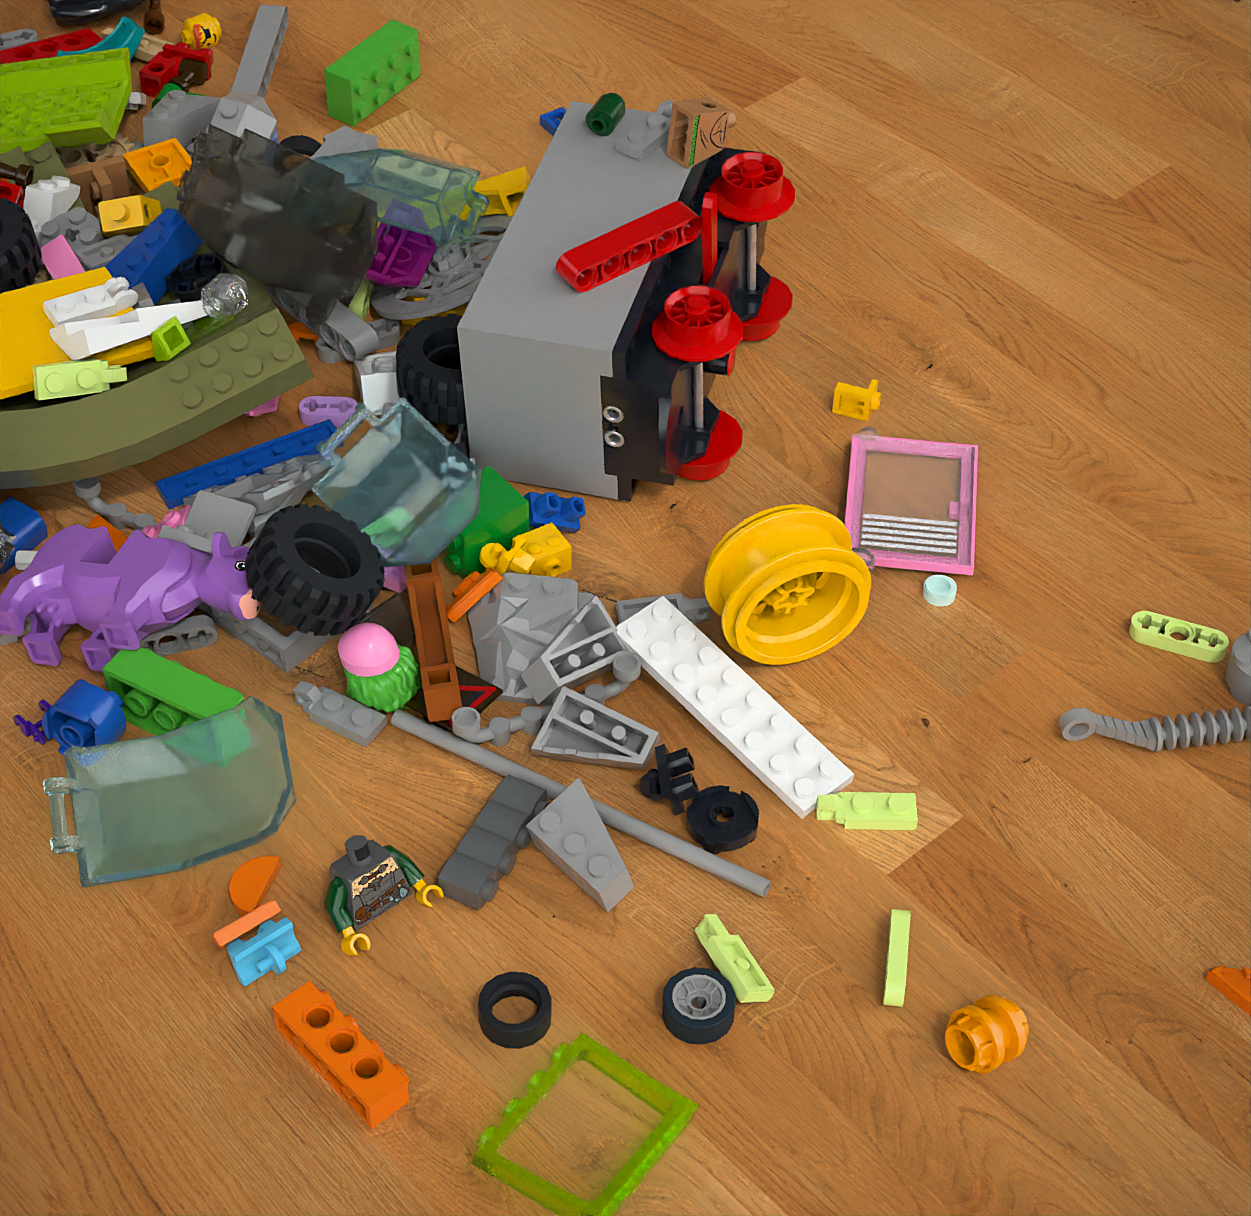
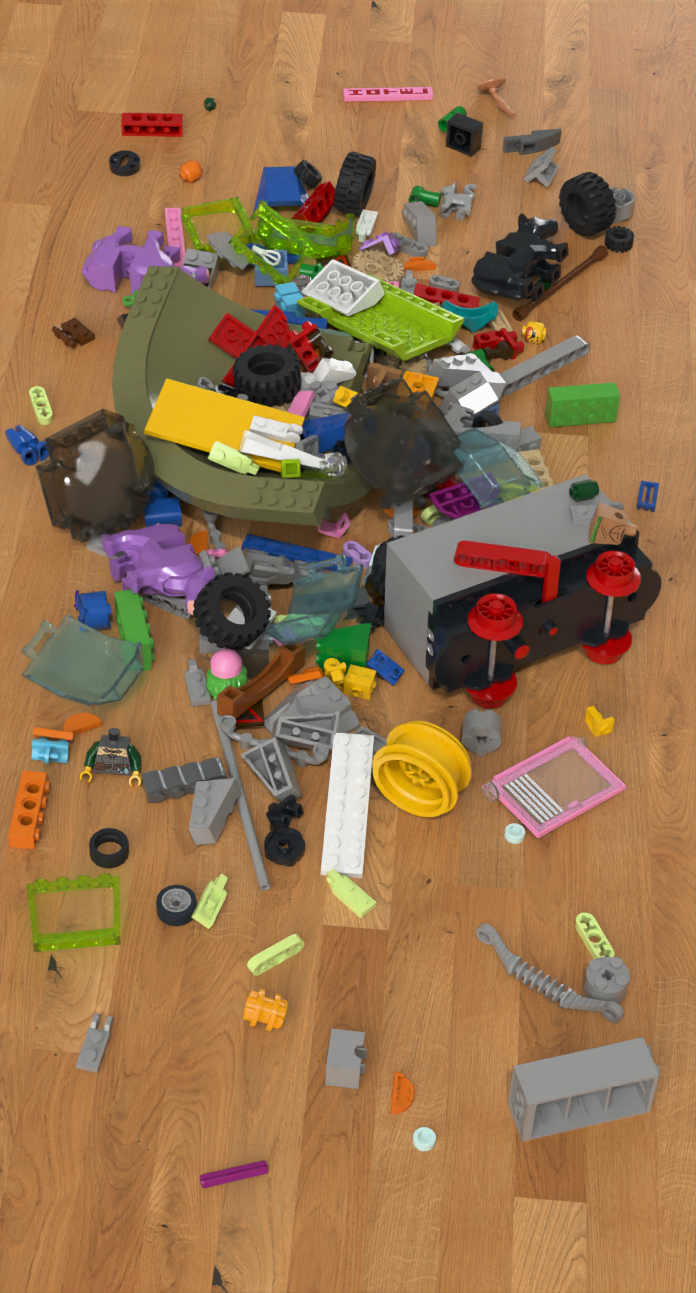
camera: 45 degrees right, 0 degrees up
(762, 490) = (481, 731): none -> light grey brick
(1151, 1006) = (345, 1058): none -> light grey piece

